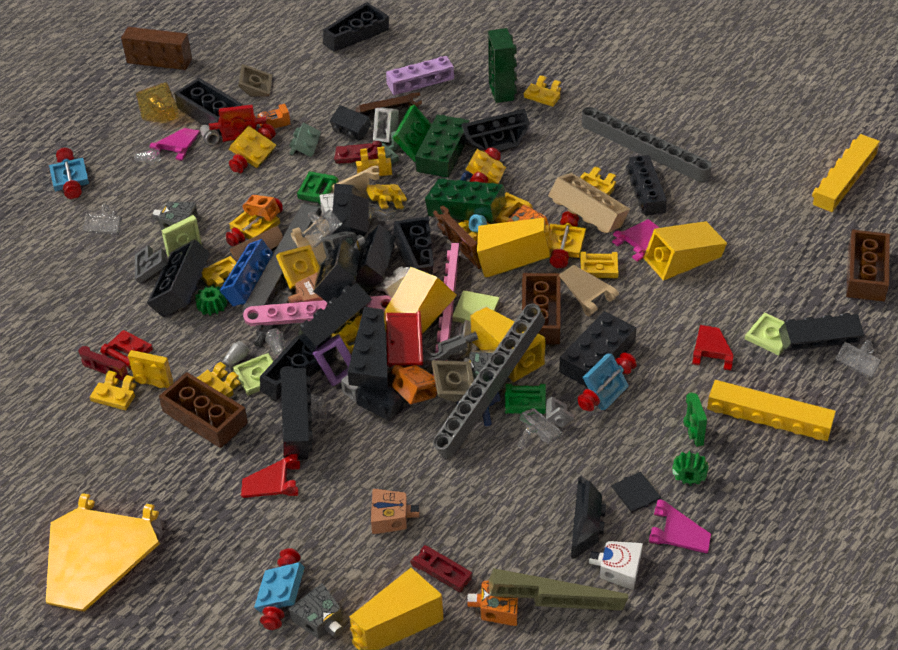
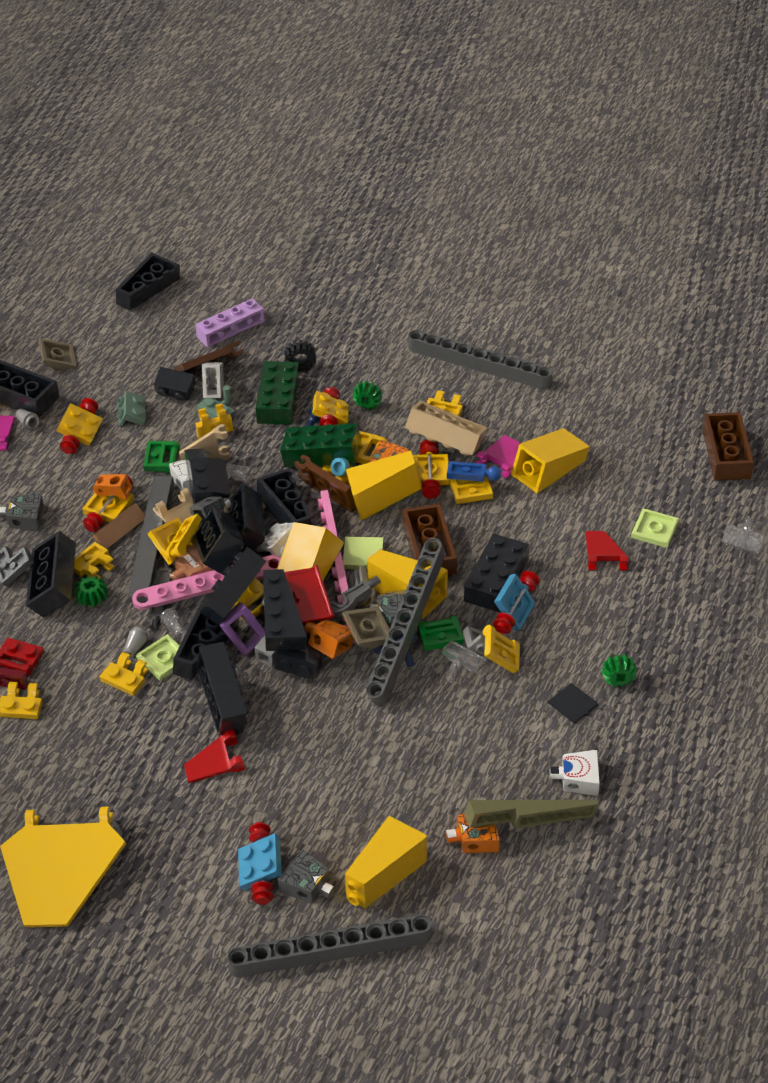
camera: 15 degrees left, 0 degrees up
(150, 369) = (54, 672): yellow plate -> none
(180, 234) = (38, 528): yellowish green tile -> none
(203, 409) = (122, 703): reddish brown brick -> none
(235, 120) = (55, 400): red plate -> none
(246, 272) = (120, 556): blue brick -> none
(276, 118) = (95, 389): orange leg -> none
(299, 273) = (183, 537): none -> yellow plate
(321, 227) = (185, 497): clear plate -> none
(351, 153) = (189, 414): dark red plate -> none
(386, 193) = (236, 451): yellow plate -> none
(391, 511) = (344, 766): nougat torso -> none
(412, 131) = (244, 384): green plate -> none
(442, 568) = (411, 811): dark red plate -> none
(473, 107) = (301, 348): none -> black tyre
(497, 132) = (330, 369): black wedge -> none
(502, 65) = (316, 300): dark green brick -> none
(525, 160) = (367, 395): none -> green gear
(541, 94) = (361, 324): yellow plate -> none
(575, 429) = (501, 649): none -> yellow plate
(587, 288) = (468, 514): tan flag -> none
(587, 517) = (535, 734): black wedge -> none
(603, 248) = (472, 471): none -> blue plate
(646, 185) = (493, 400): black brick -> none
(679, 530) = (624, 731): dark pink flag -> none
(695, 419) = (611, 623): green plate -> none
(771, 410) = (677, 601): yellow brick -> none
(821, 331) = (702, 518): black brick -> none
(845, 173) = (680, 358): yellow brick -> none

